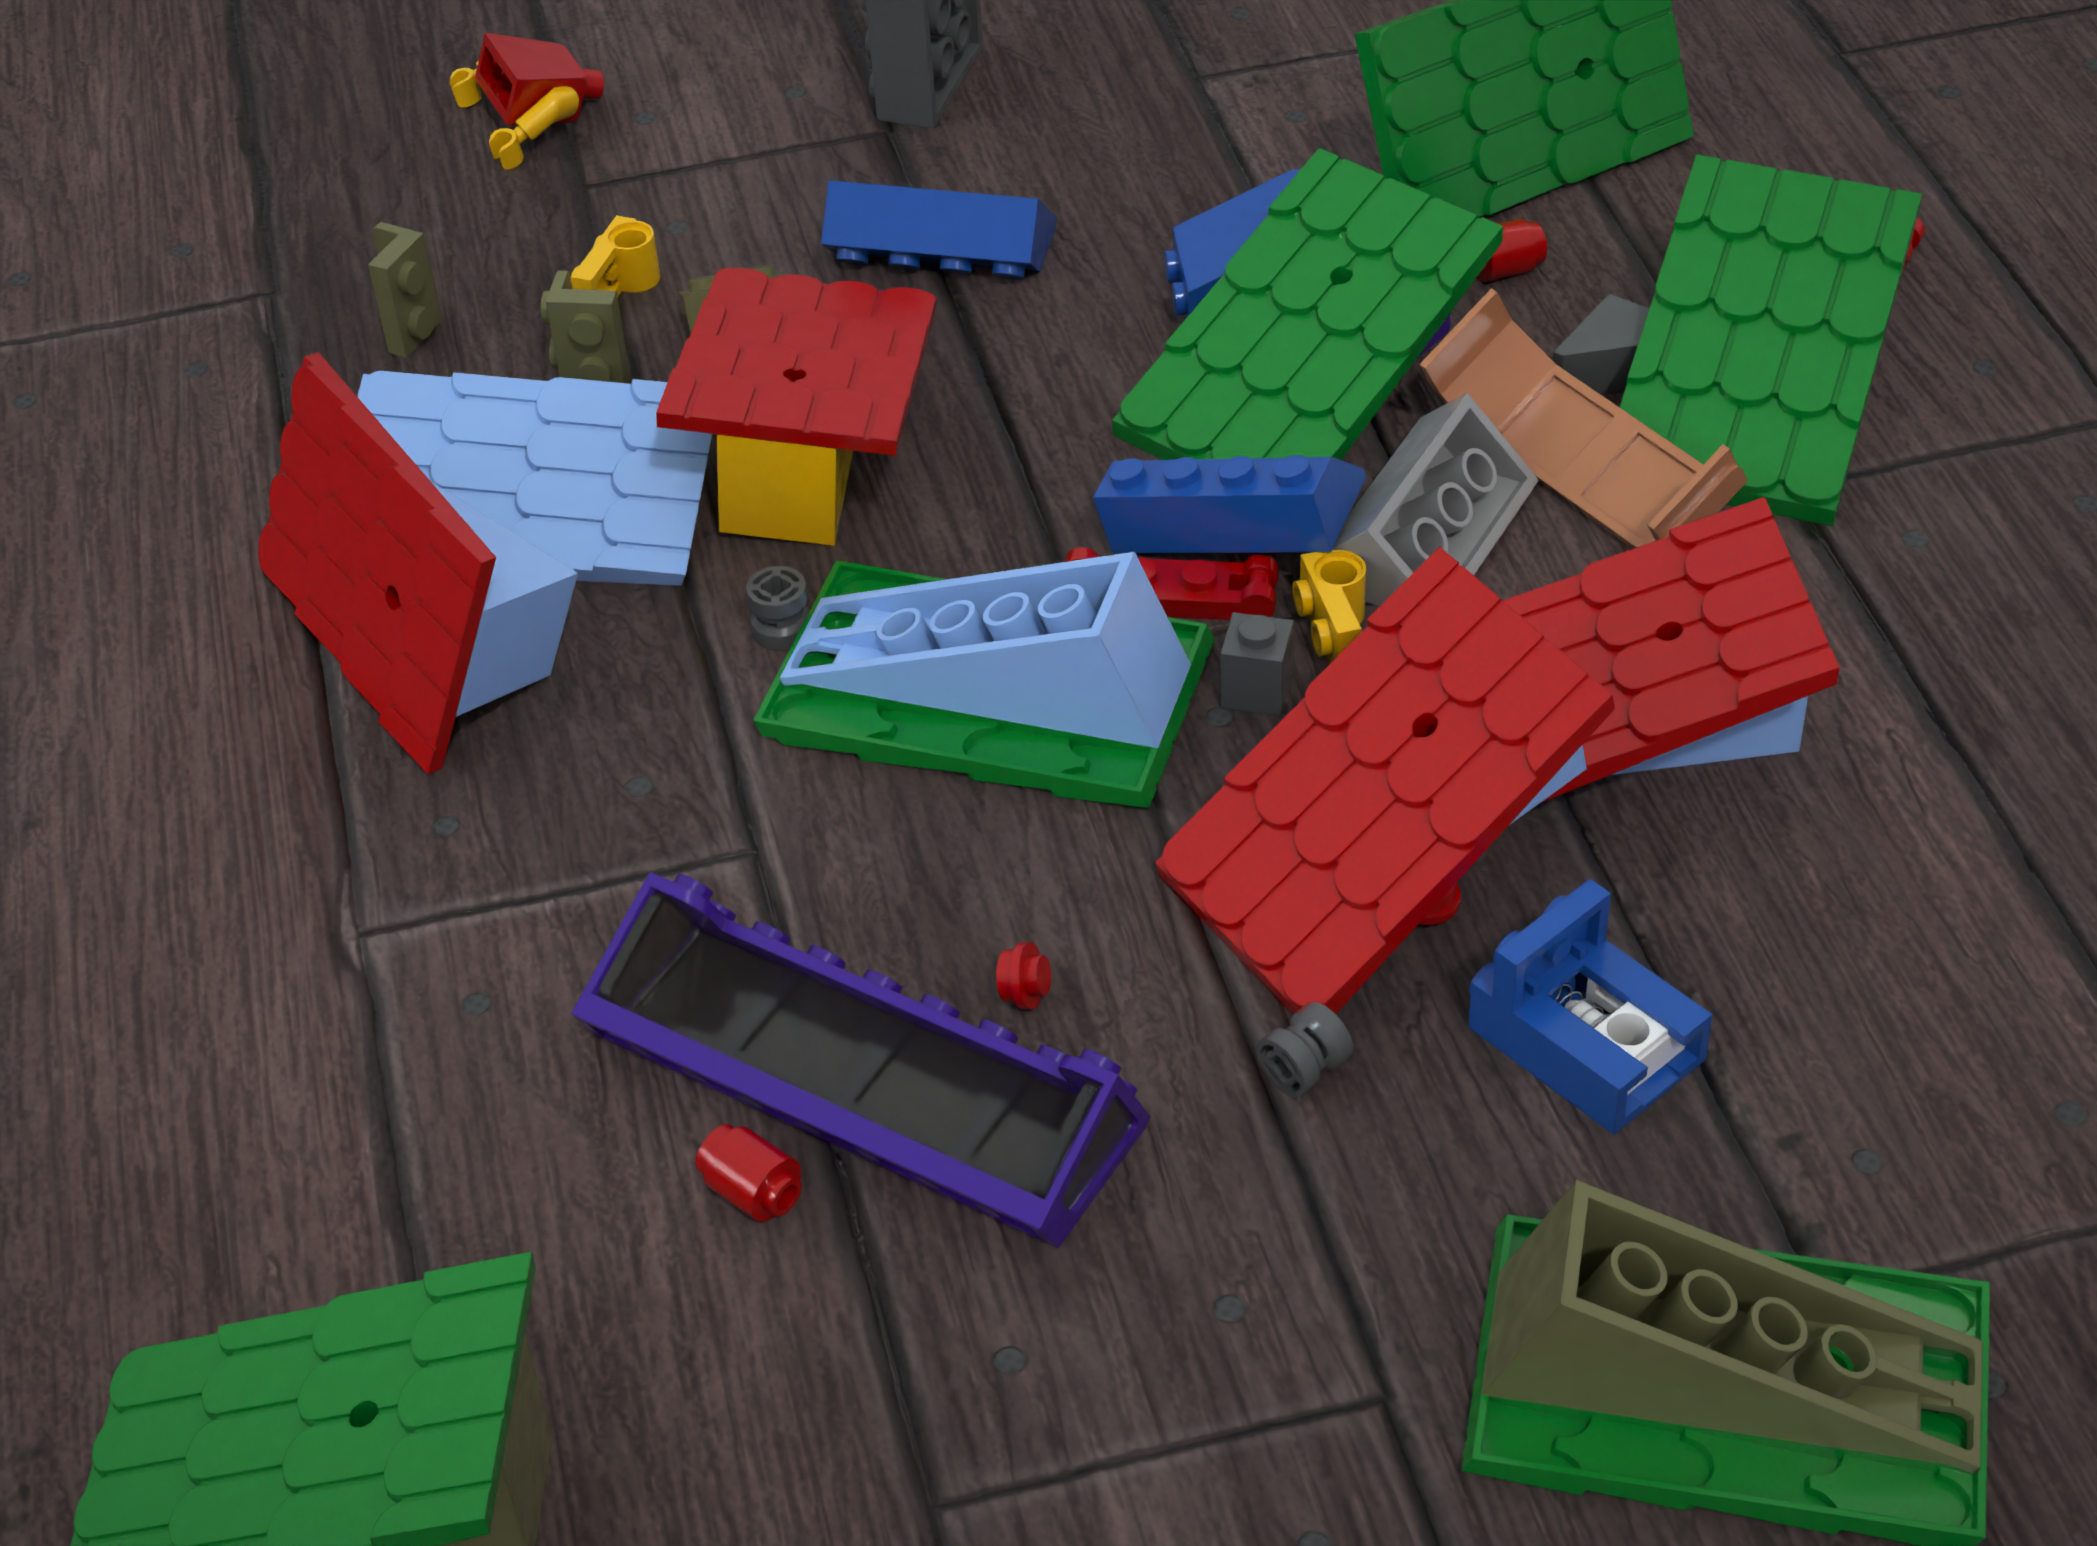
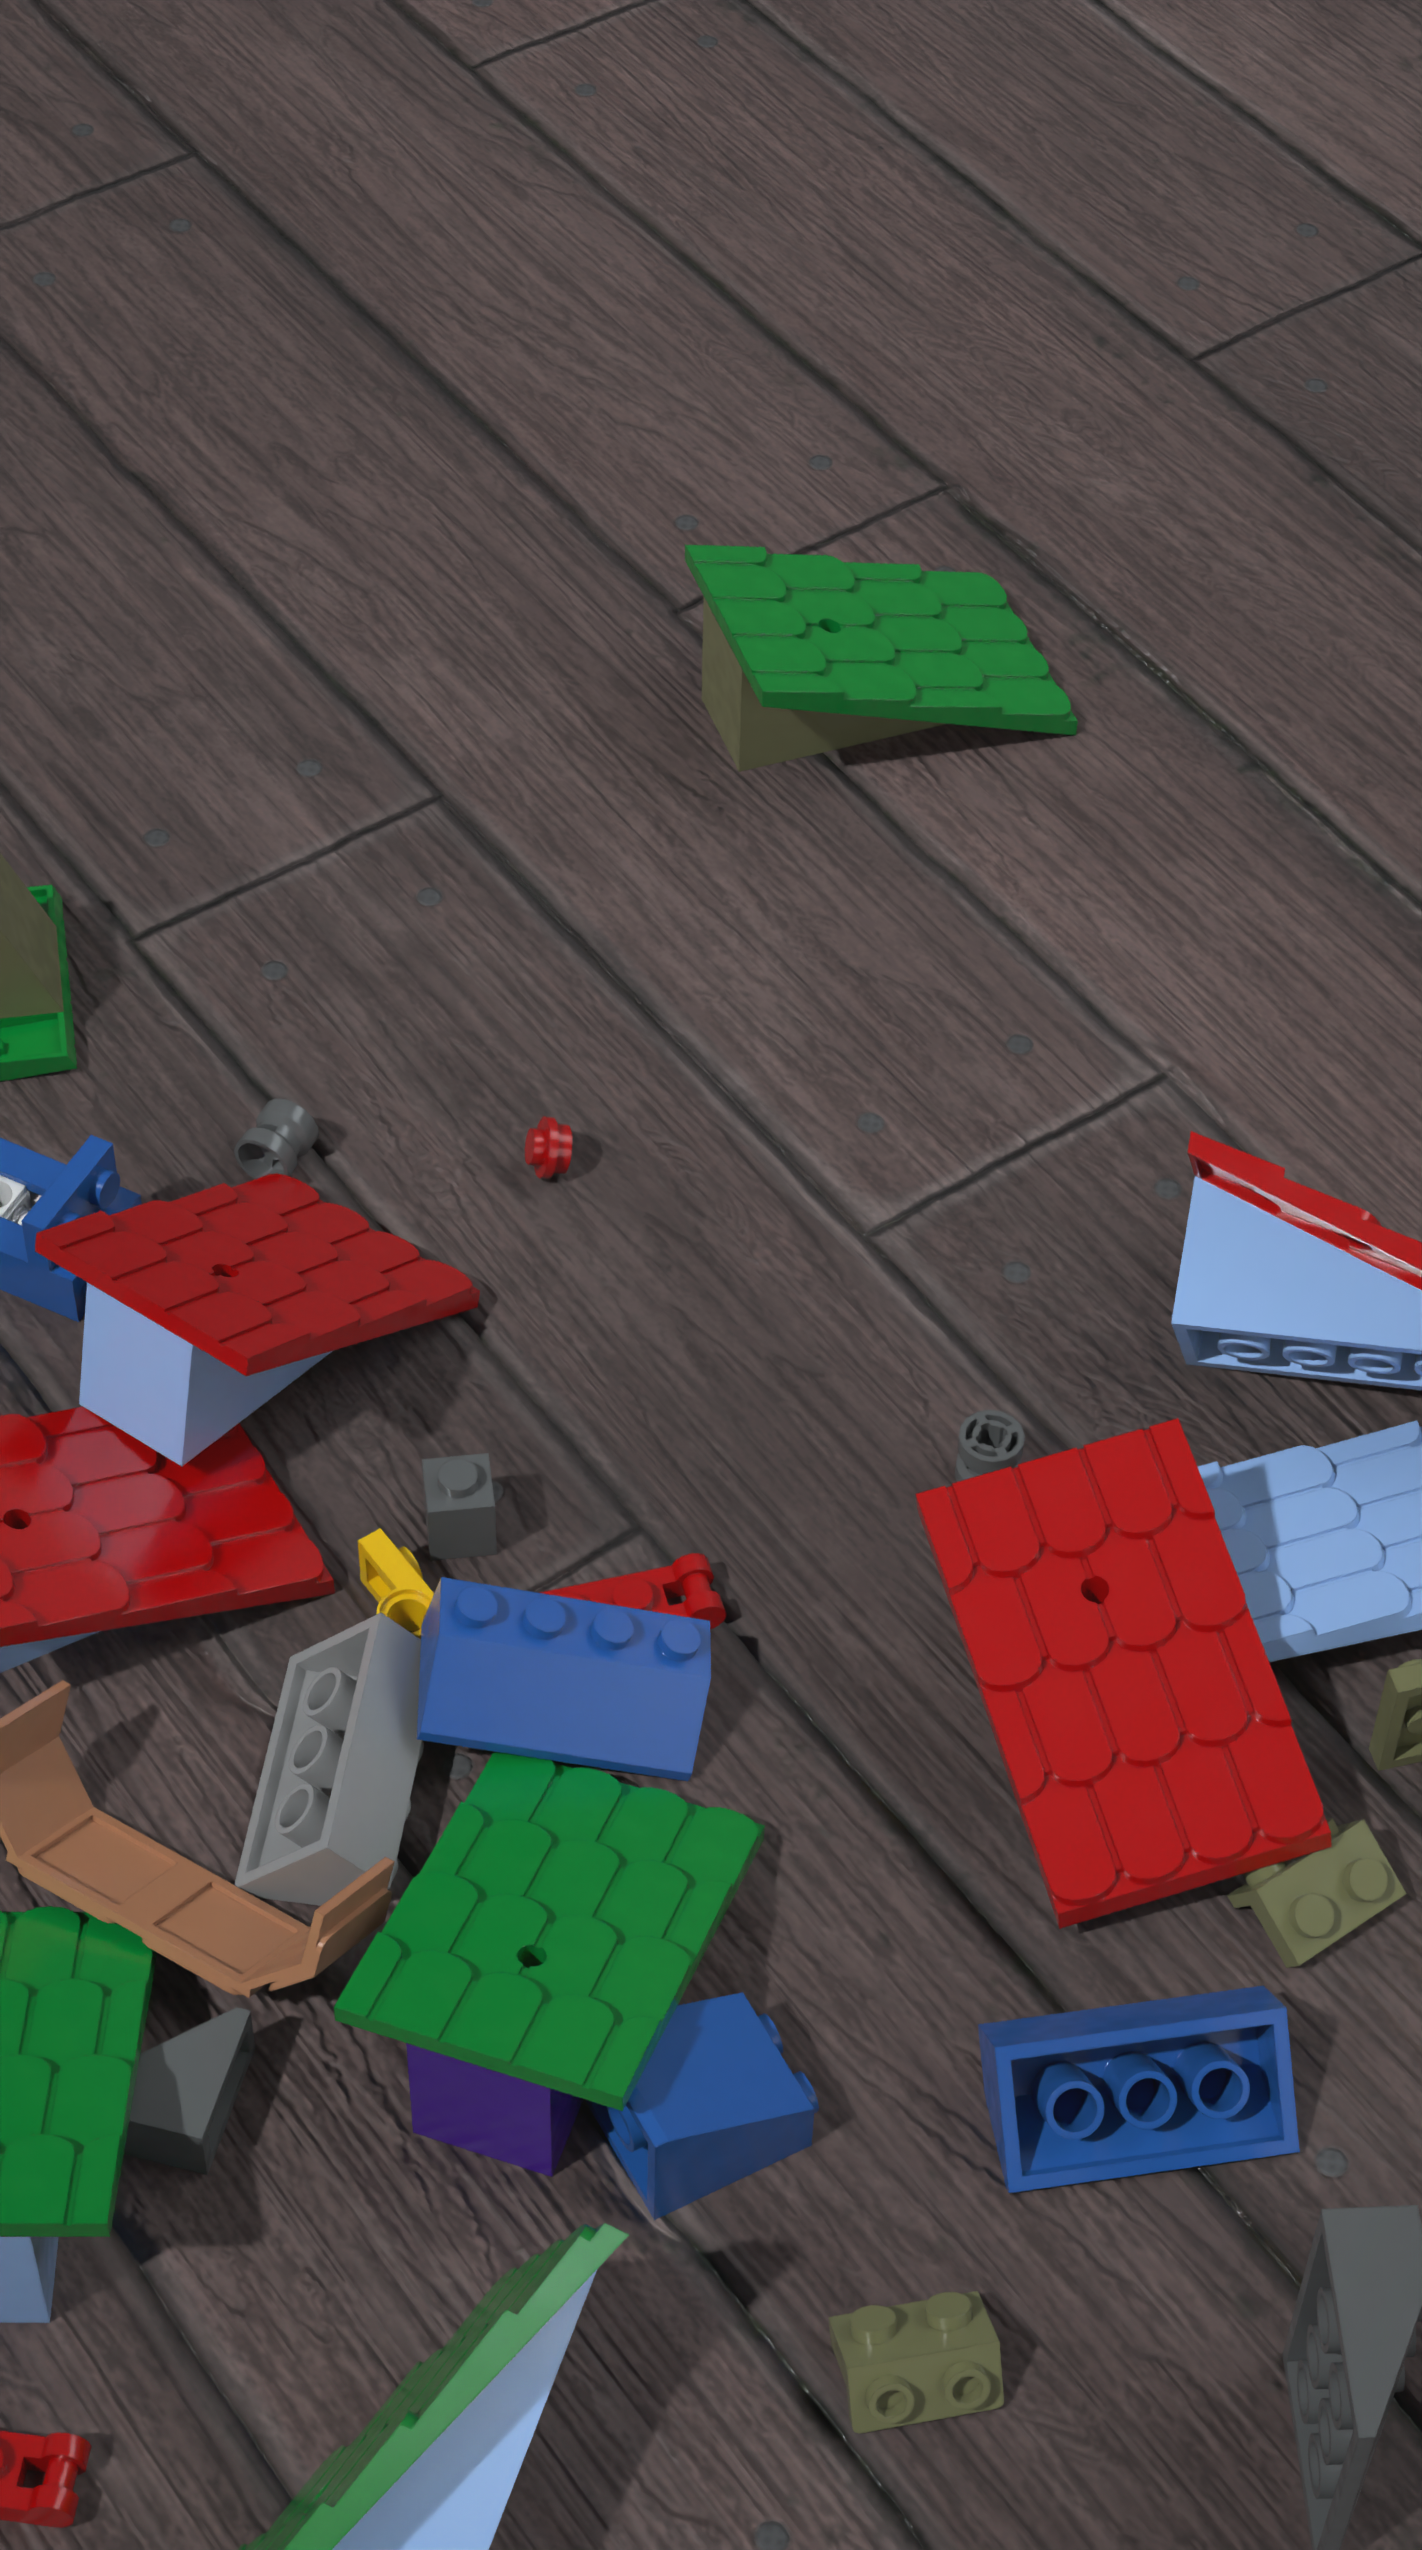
camera: 155 degrees right, 5 degrees up
(749, 1172) = (691, 937): red brick -> none
(861, 1062) = (648, 1038): window -> none
(1003, 676) = (726, 1443): light blue piece -> none
(1166, 146) = (918, 2361): none -> olive bracket
(1520, 251) = (373, 2258): red brick -> none

